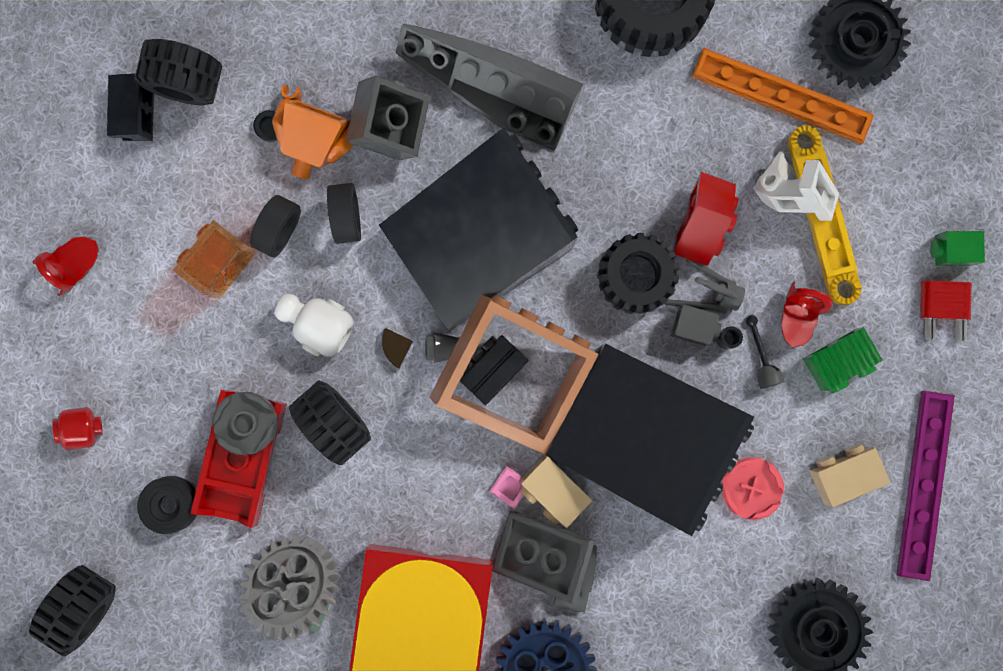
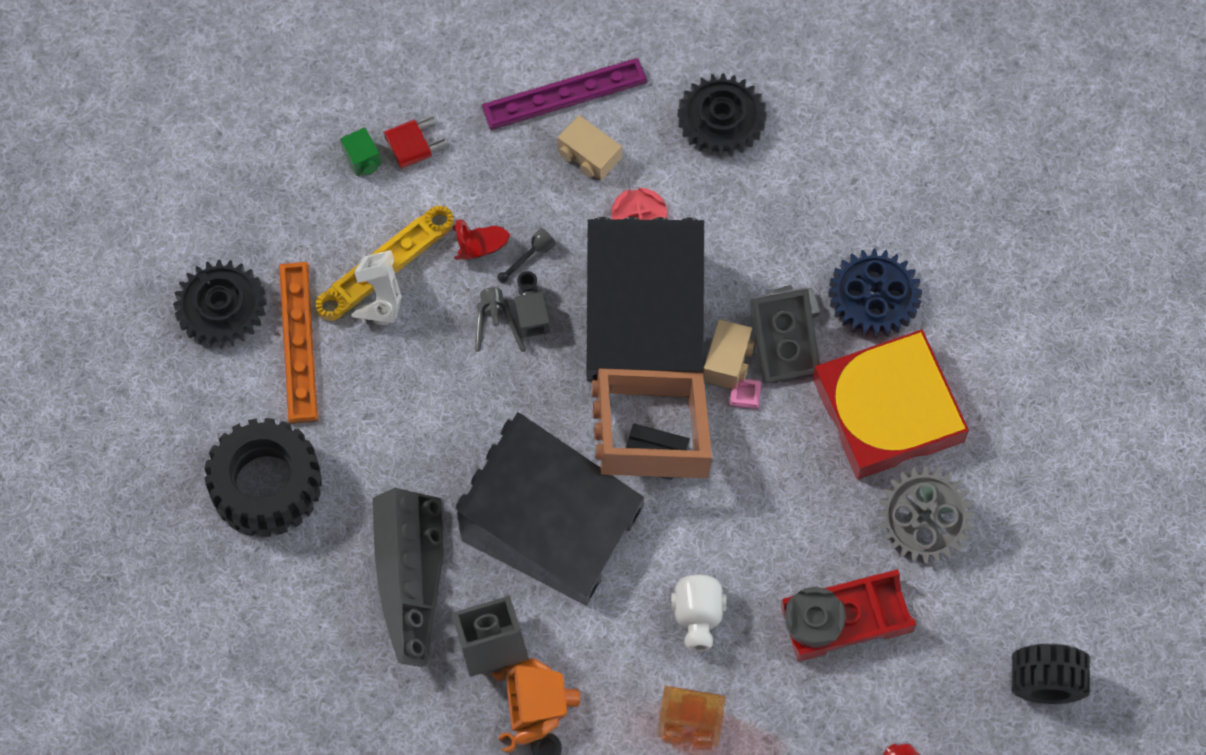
camera: 120 degrees left, 20 degrees down
(150, 507) = (926, 639): black tyre -> none
(275, 226) = (633, 684): black tyre -> none
(329, 423) = (774, 548): black tyre -> none
(343, 213) = (591, 633): black tyre -> none
(395, 347) = (681, 541): dark brown tile -> none
(439, 347) = (660, 500): dark grey cone -> none
(660, 259) = (513, 397): black tyre -> none
(707, 219) = (438, 342): red brick -> none
(842, 360) = (498, 194): green brick -> none

